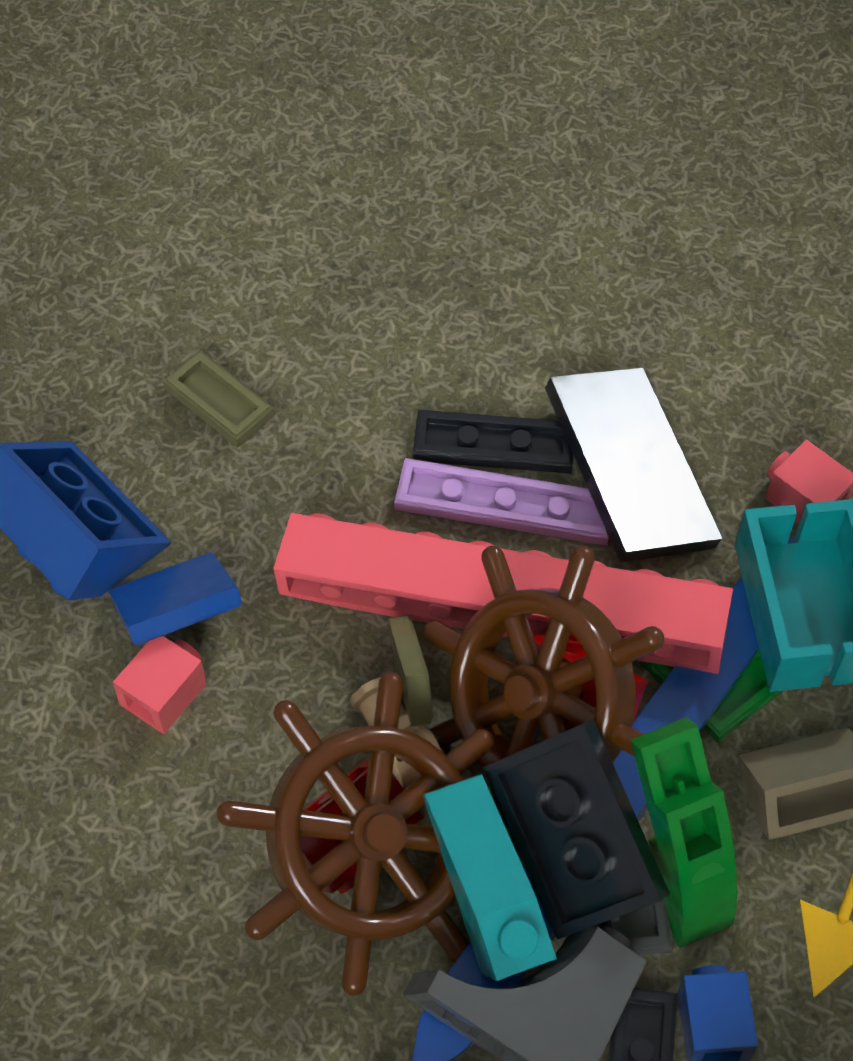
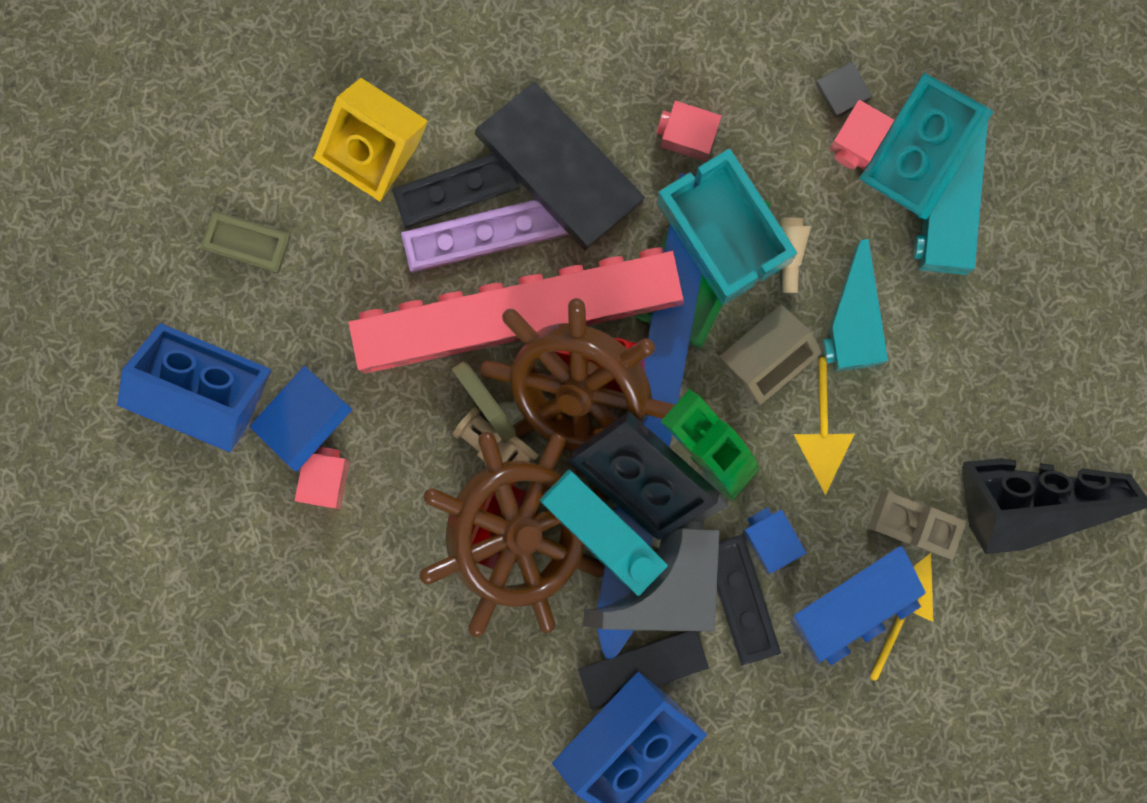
camera: 20 degrees left, 25 degrees up
(419, 346) = (369, 138): none -> yellow slope

